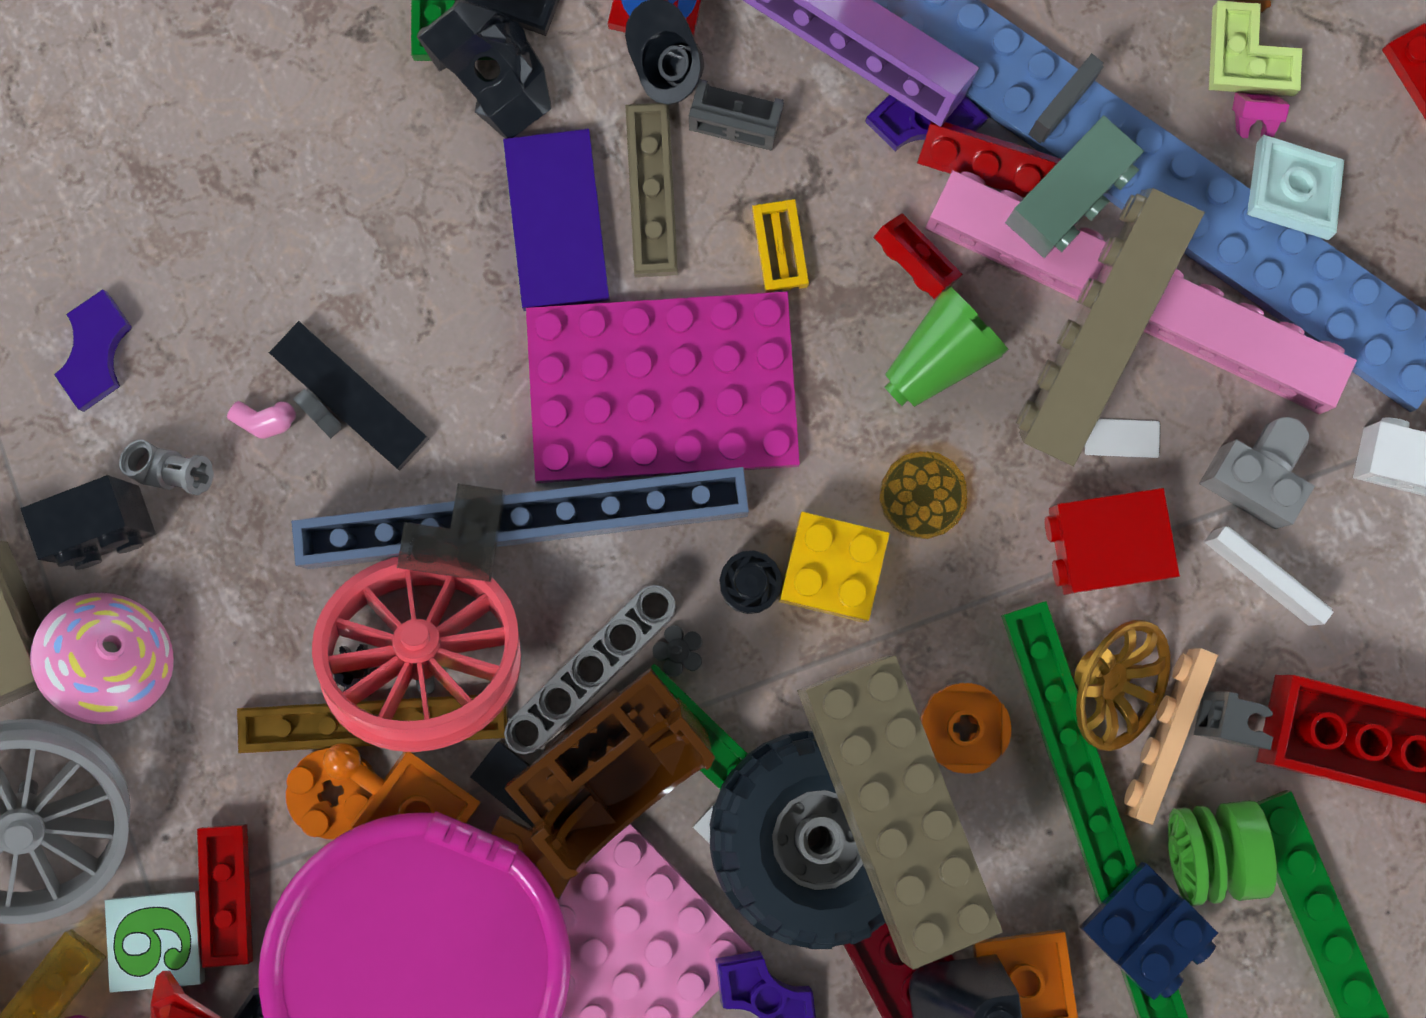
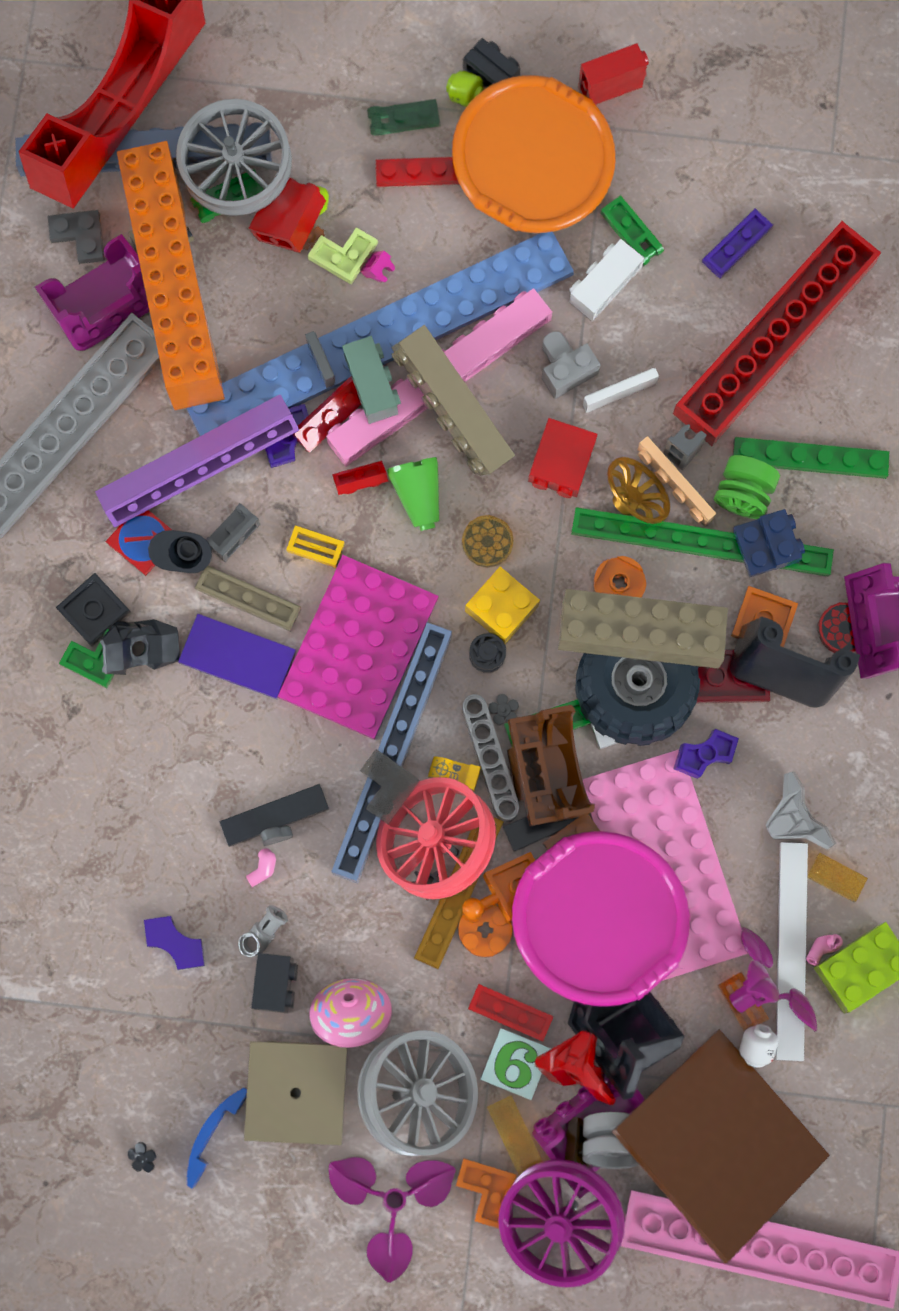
camera: 65 degrees left, 5 degrees down
(541, 627) = (455, 770): none -> yellow leg
(1124, 438) = (512, 422): white sticker -> none
(1296, 187) = (427, 269): light aqua tile -> none

